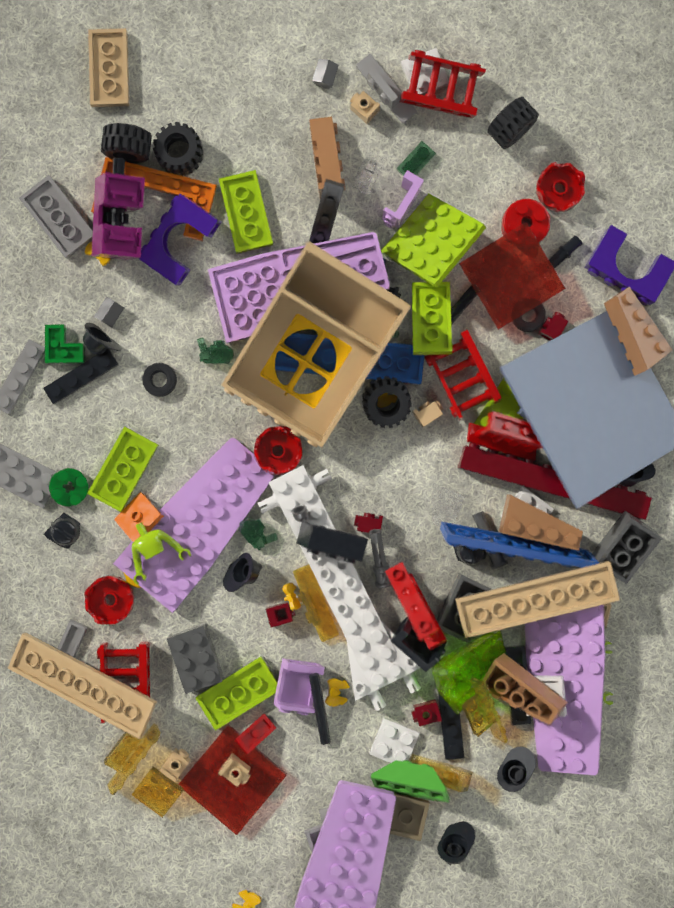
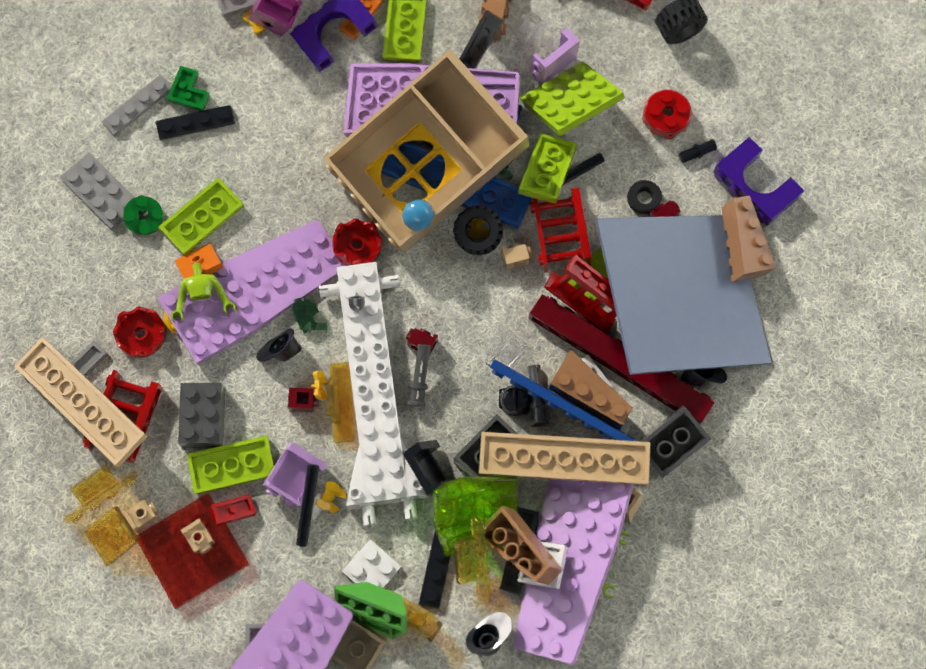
camera: 20 degrees right, 15 degrees down
(64, 531) = (122, 257): black piece -> none
(97, 340) = (222, 93): black piece -> none
(109, 312) = (244, 73): dark grey piece -> none
(148, 382) = (268, 136): black tyre -> none
(216, 354) = (330, 139): clear green piece -> none
(330, 414) = (418, 215): none -> dark azure hair
(332, 542) = (378, 336): black wedge -> none
(416, 159) = (584, 28): clear green plate -> none
(416, 606) = (439, 426): red fence -> none
(428, 706) = (420, 553): dark red brick -> none
(512, 275) = (638, 152): clear red plate -> none
(569, 177) = (711, 80): red plate -> none

